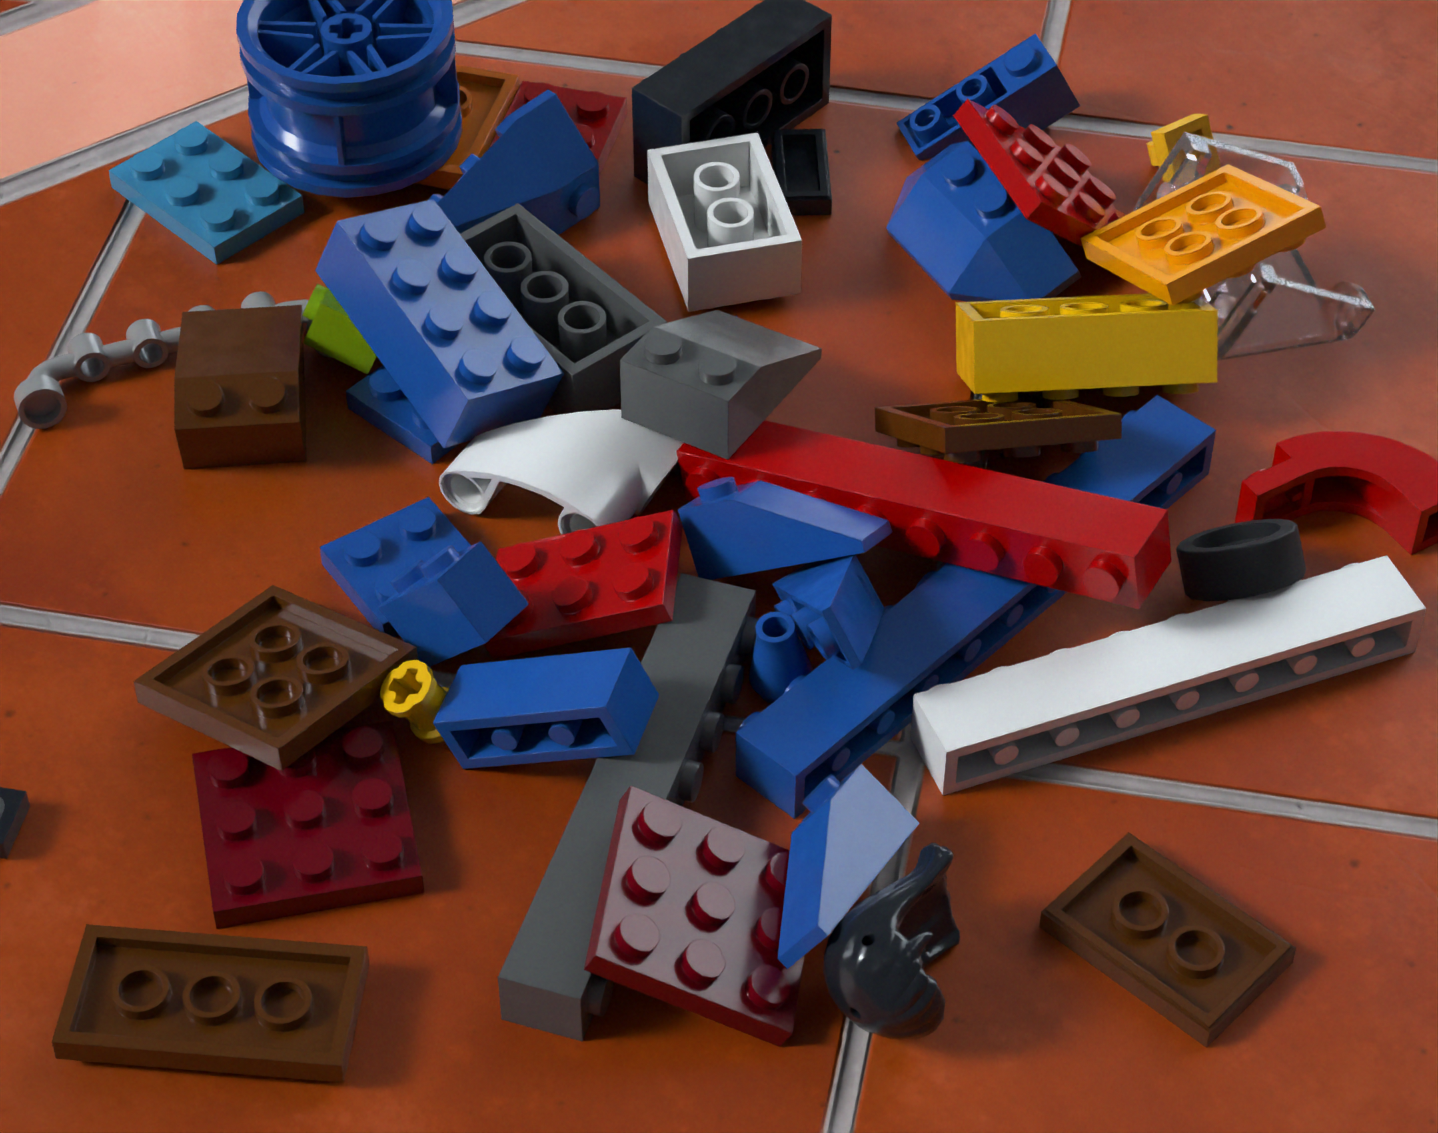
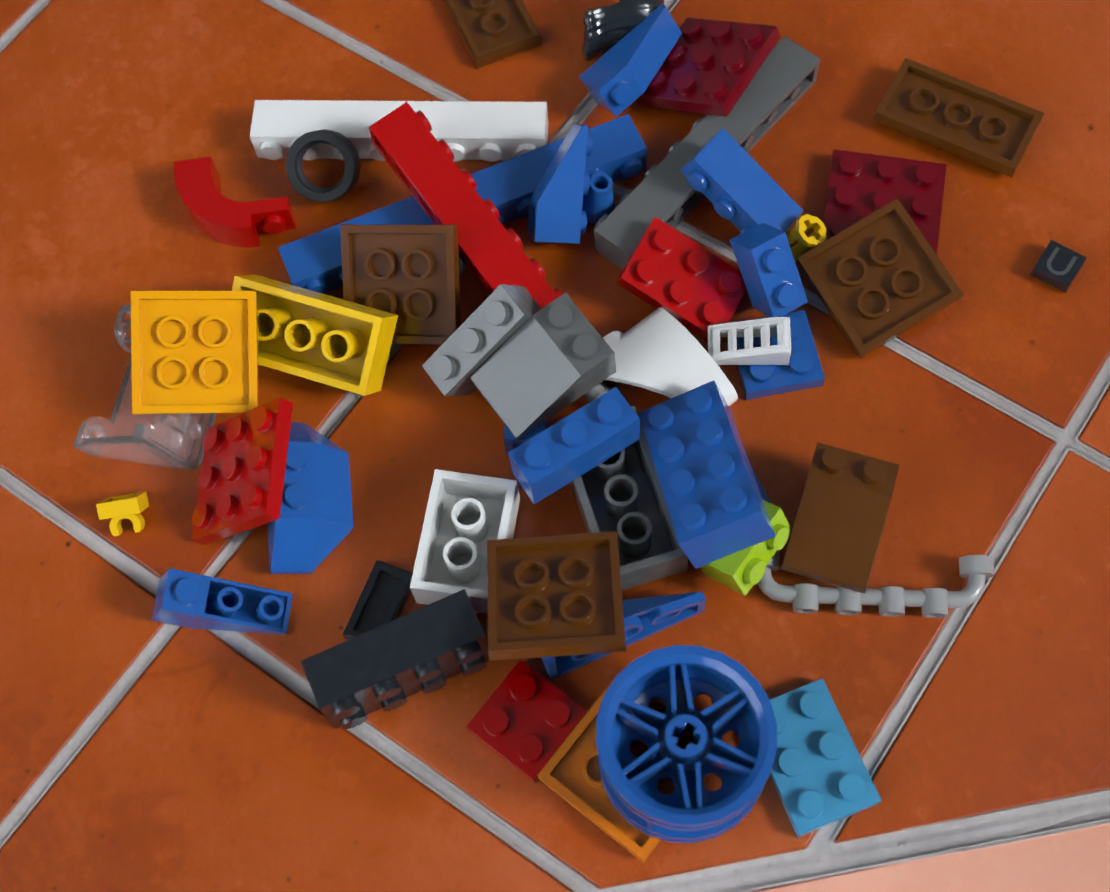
camera: 150 degrees left, 20 degrees up
(414, 522) = (762, 328): none -> white slope
(566, 133) = (554, 596): none -> reddish brown plate
(622, 275) = (575, 445): none -> blue brick
(770, 527) = (561, 251): blue slope -> none
(824, 382) = (479, 338): none -> brick

